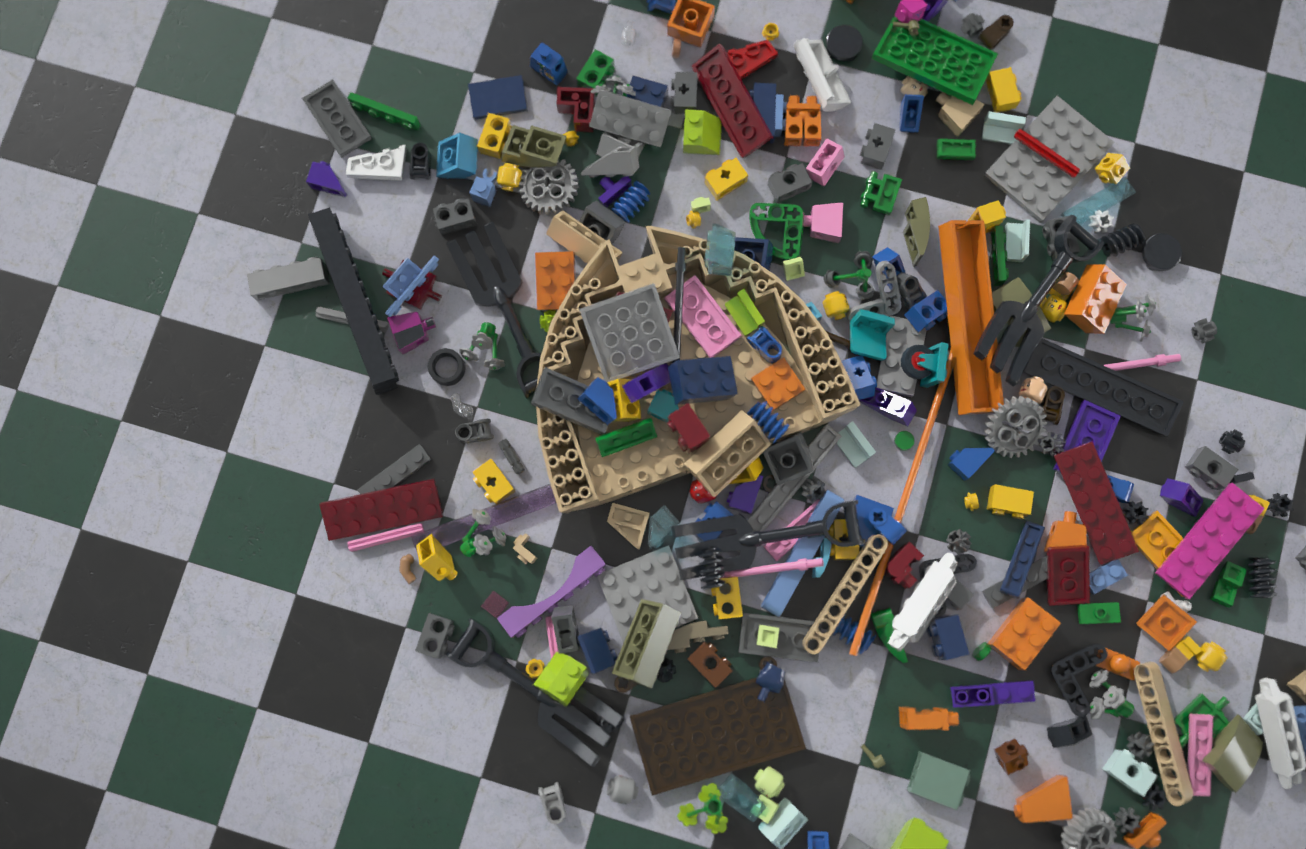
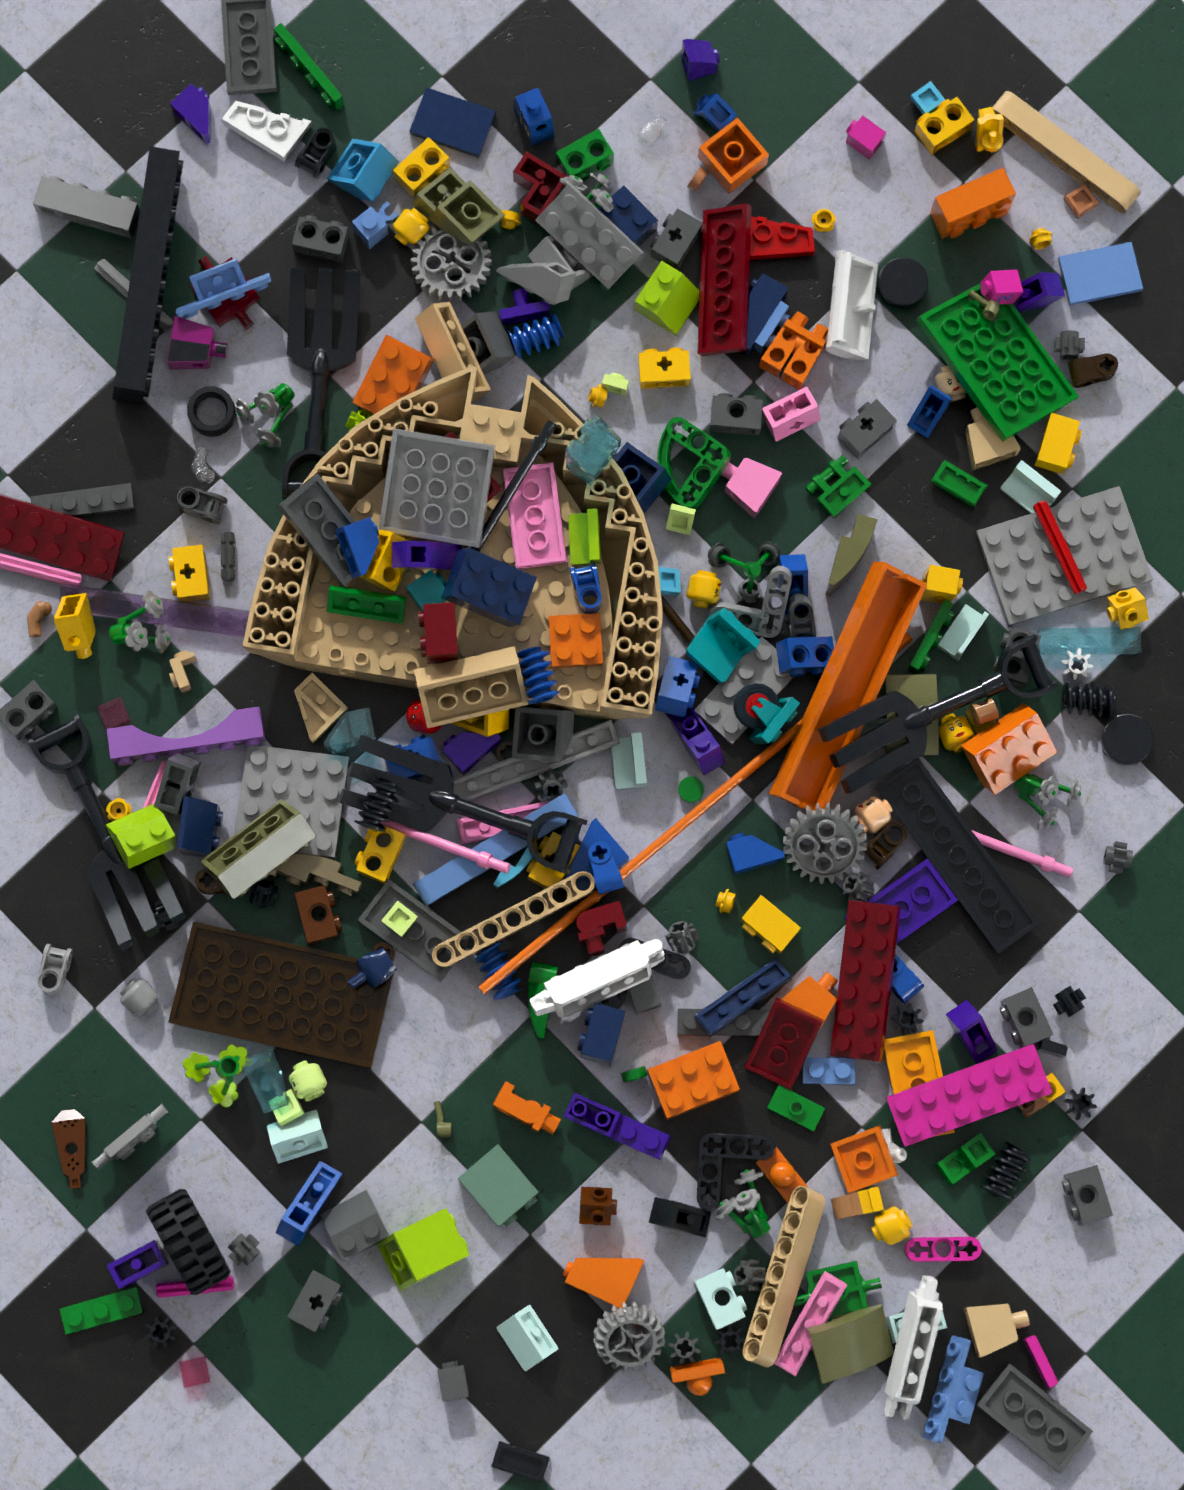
camera: 20 degrees right, 0 degrees up
(1260, 652) = (923, 1256): none -> dark pink beam

